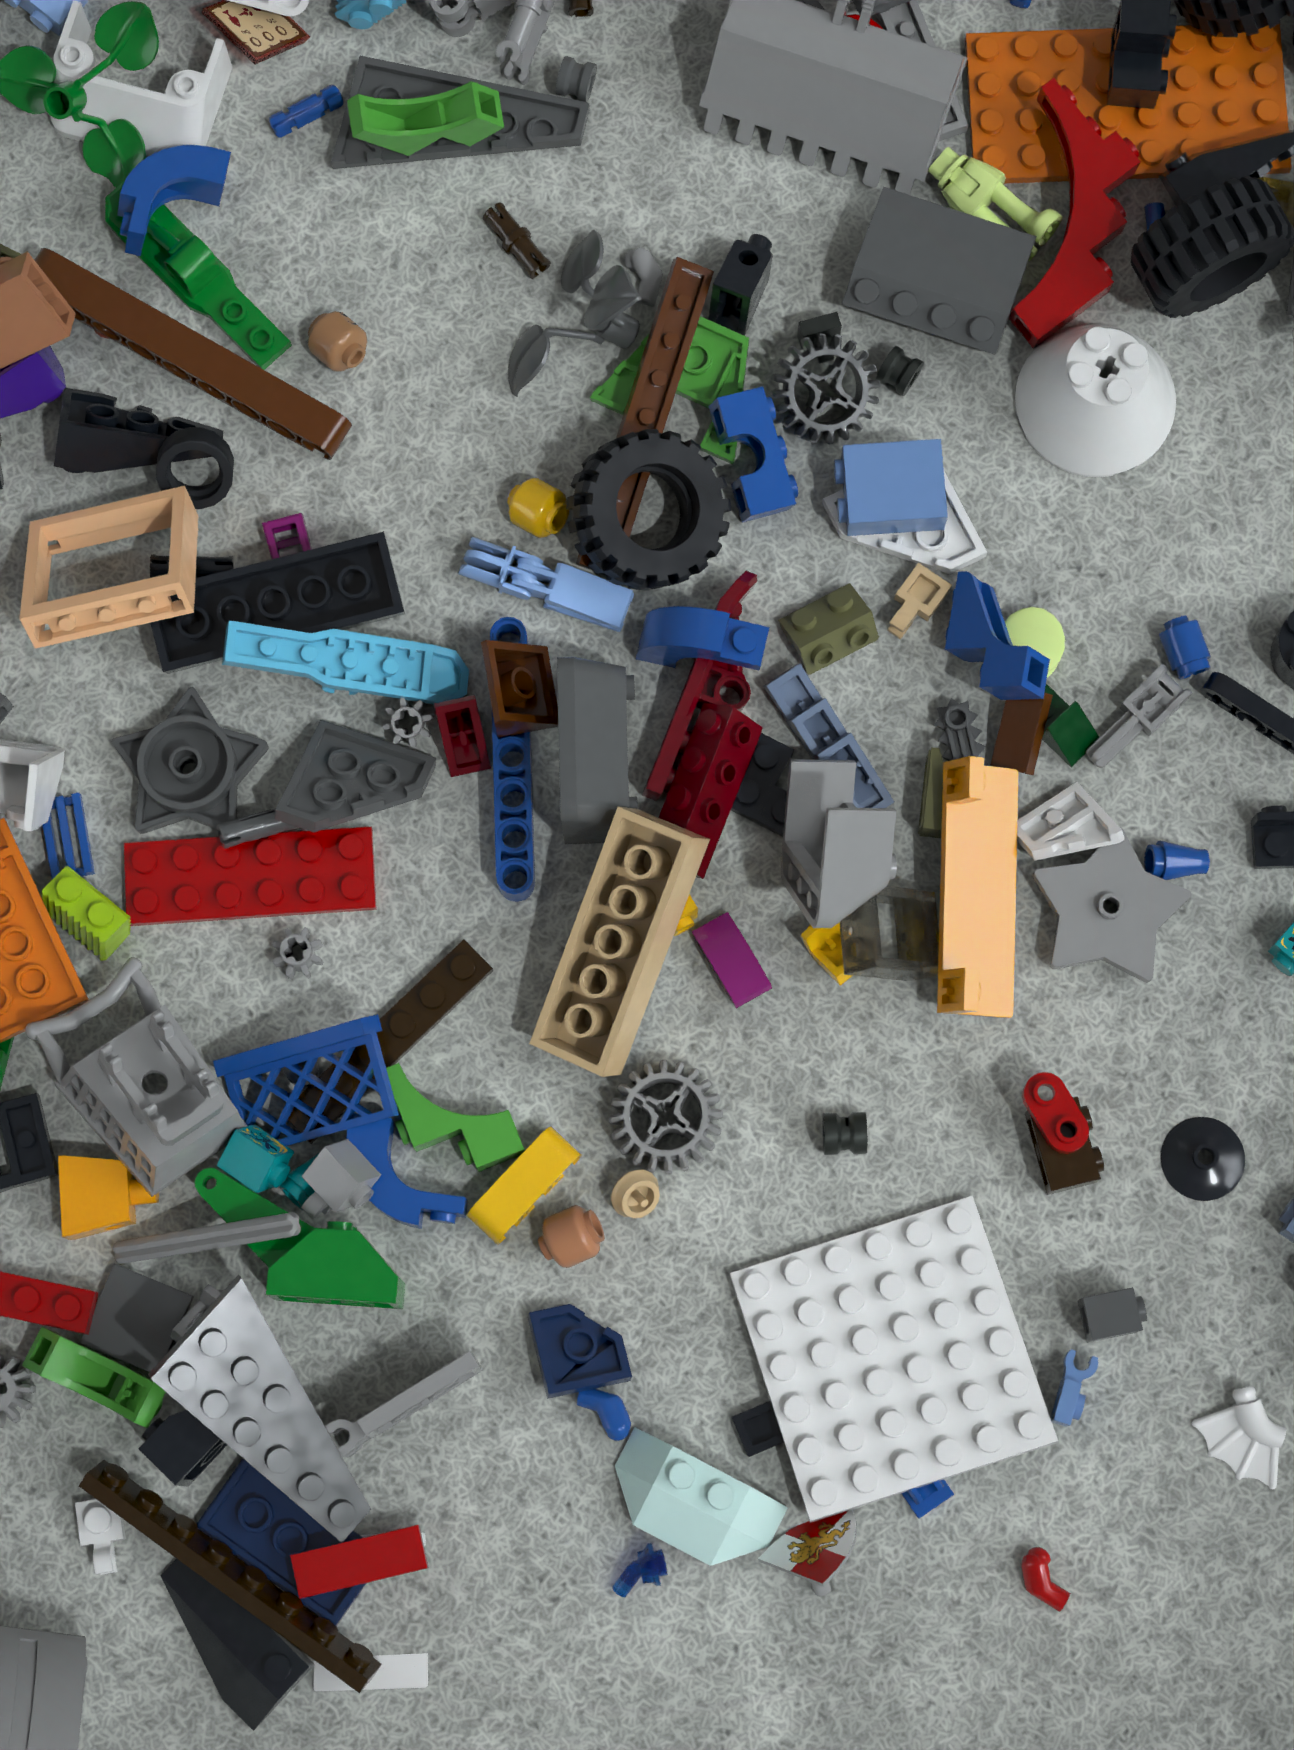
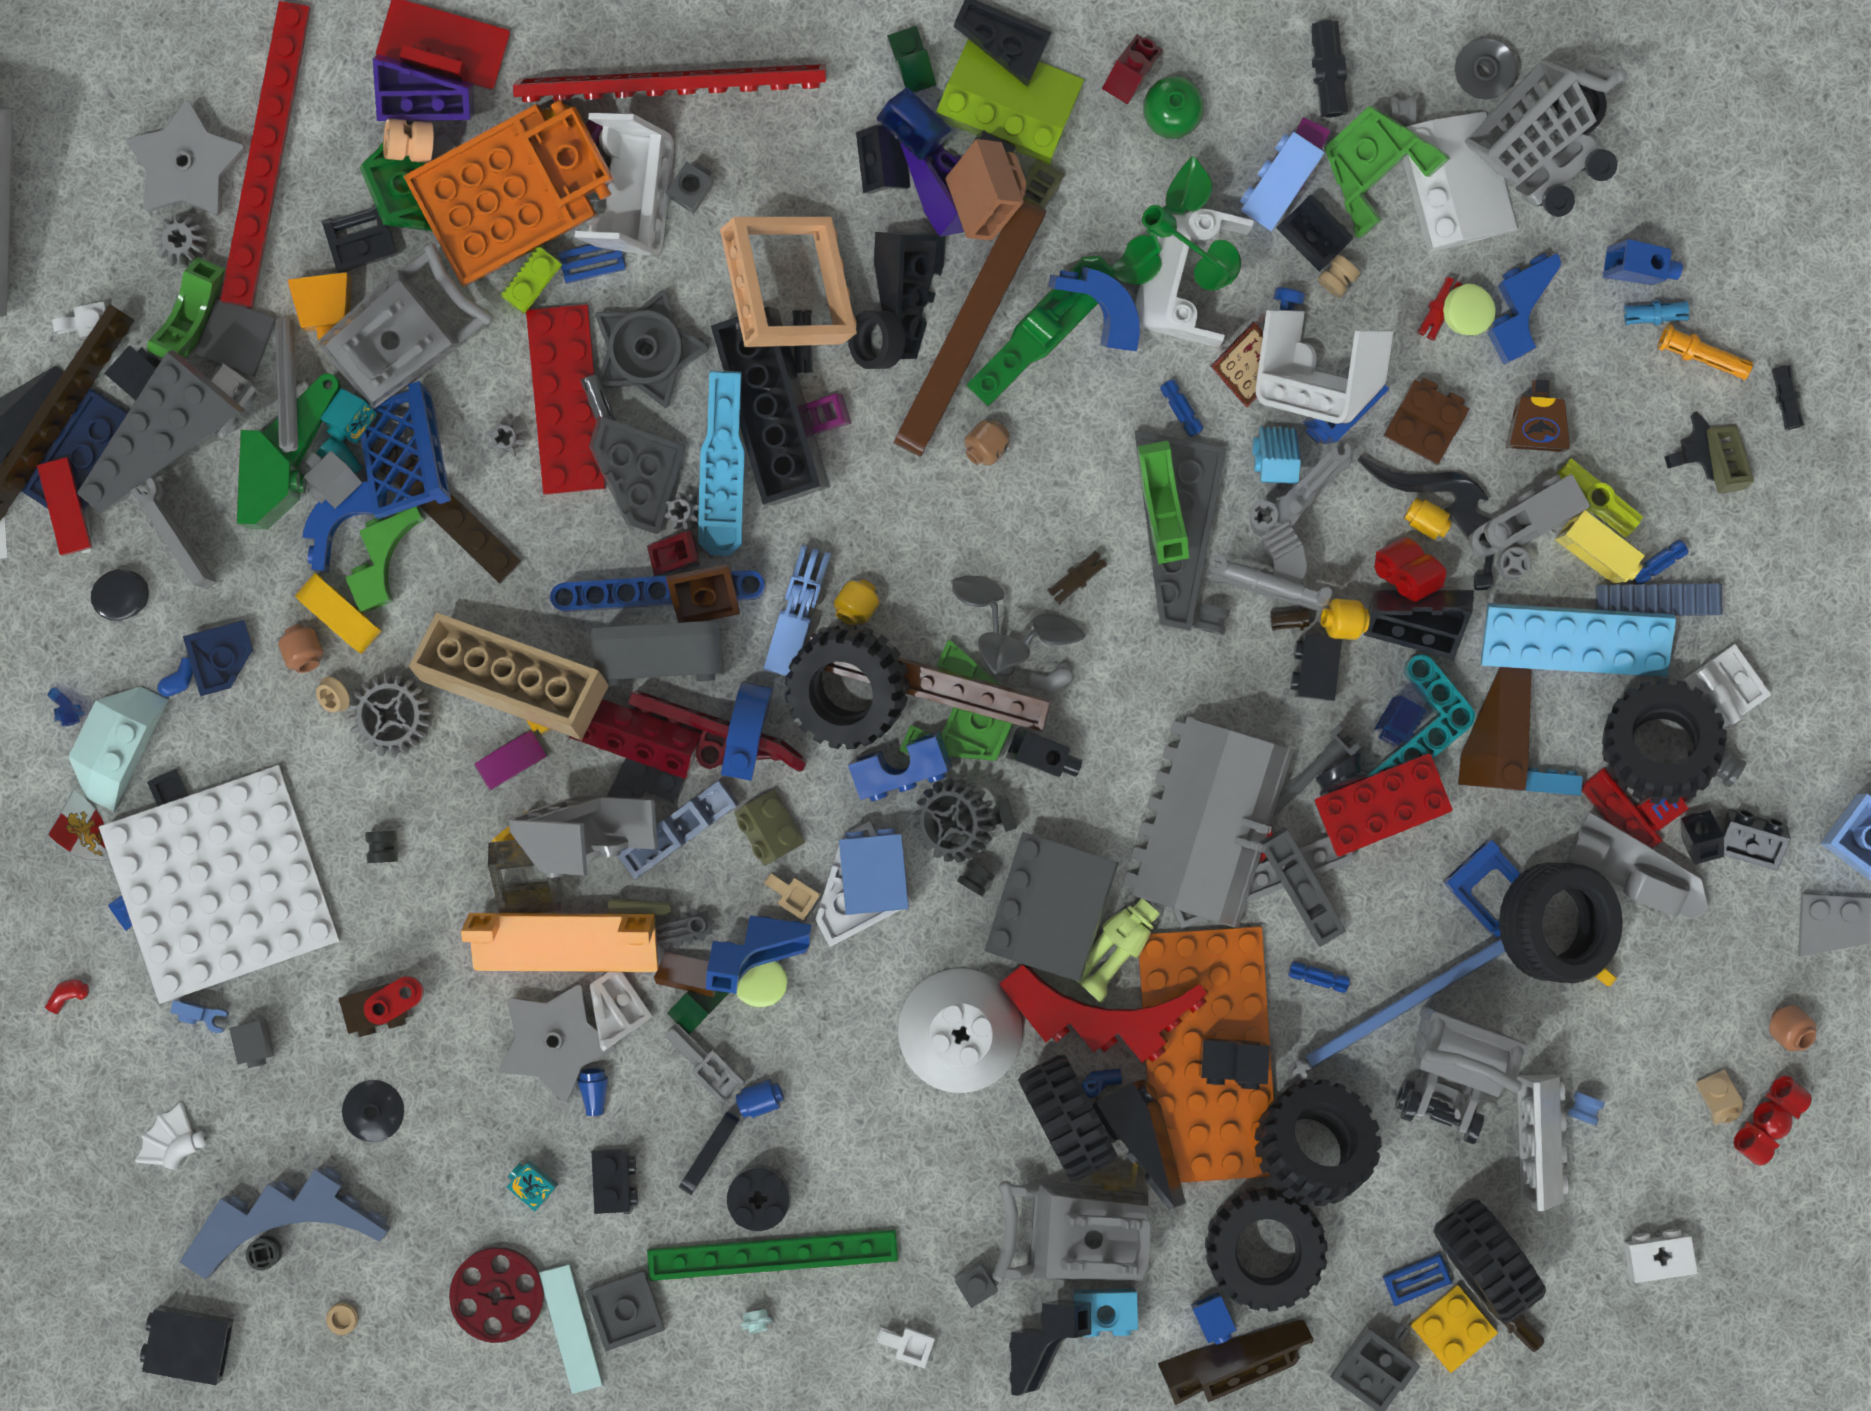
camera: 85 degrees right, 10 degrees up
(486, 1490) = (119, 595): none -> black piece

